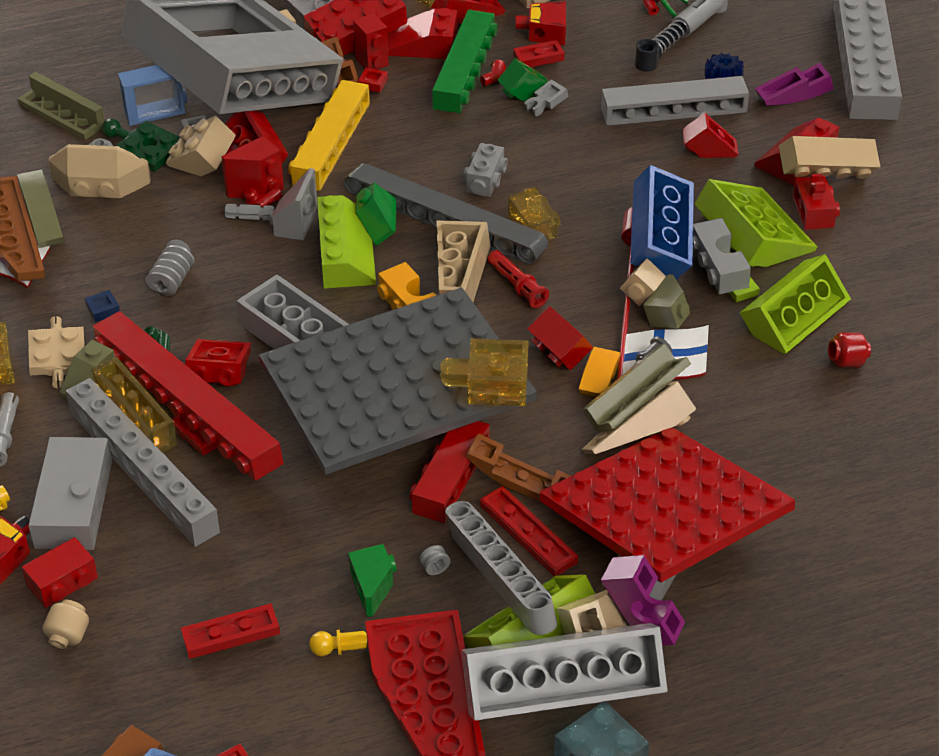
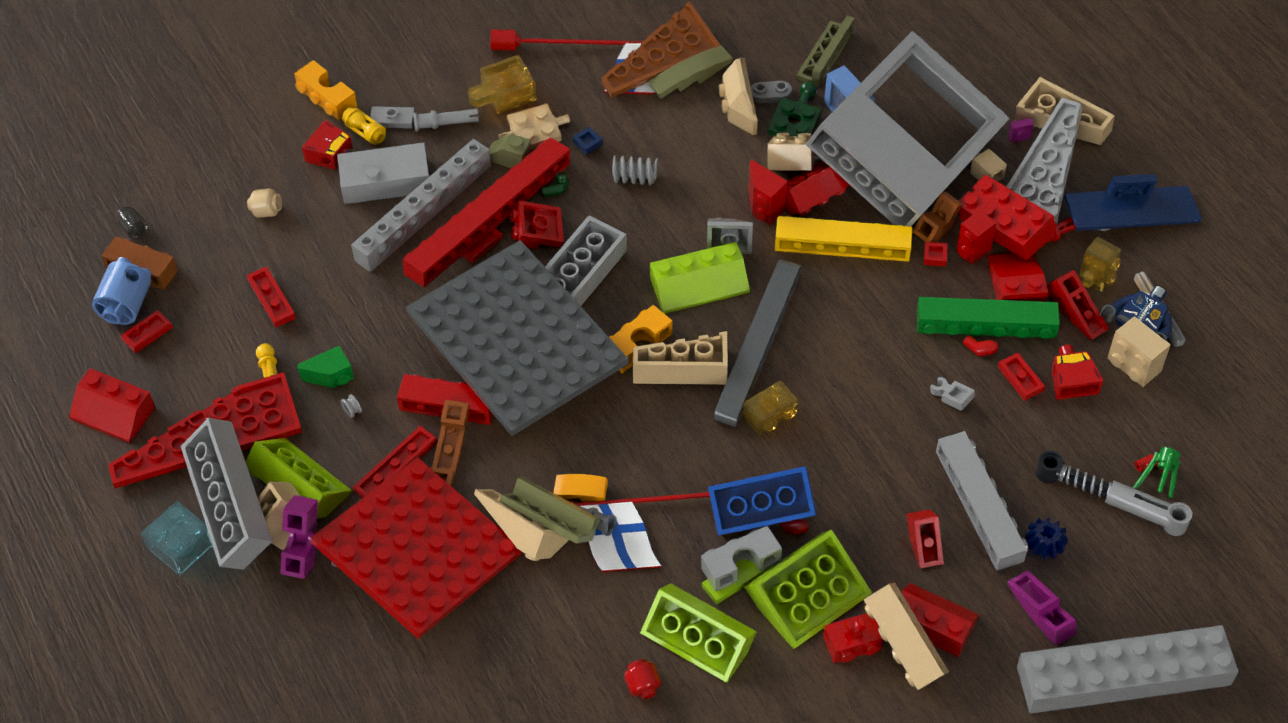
camera: 80 degrees right, 10 degrees up
(60, 572) = (310, 188): red brick -> none
(135, 402) = (471, 183): clear yellow brick -> none
(248, 212) = (726, 203): light grey axle -> none
(268, 199) = (745, 210): red arm -> none
(377, 212) = (739, 290): green slope -> none
(485, 169) = (825, 361): light grey brick -> none
(493, 372) = (503, 387): clear yellow brick -> none
(502, 568) = (326, 439): light grey beam -> none
(521, 80) = (968, 369): green slope -> none
(524, 284) = (678, 415): red pin -> none
(560, 338) = (607, 449): red brick -> none
(643, 282) = (691, 501): tan brick -> none
(667, 305) = (673, 527): olive slope -> none

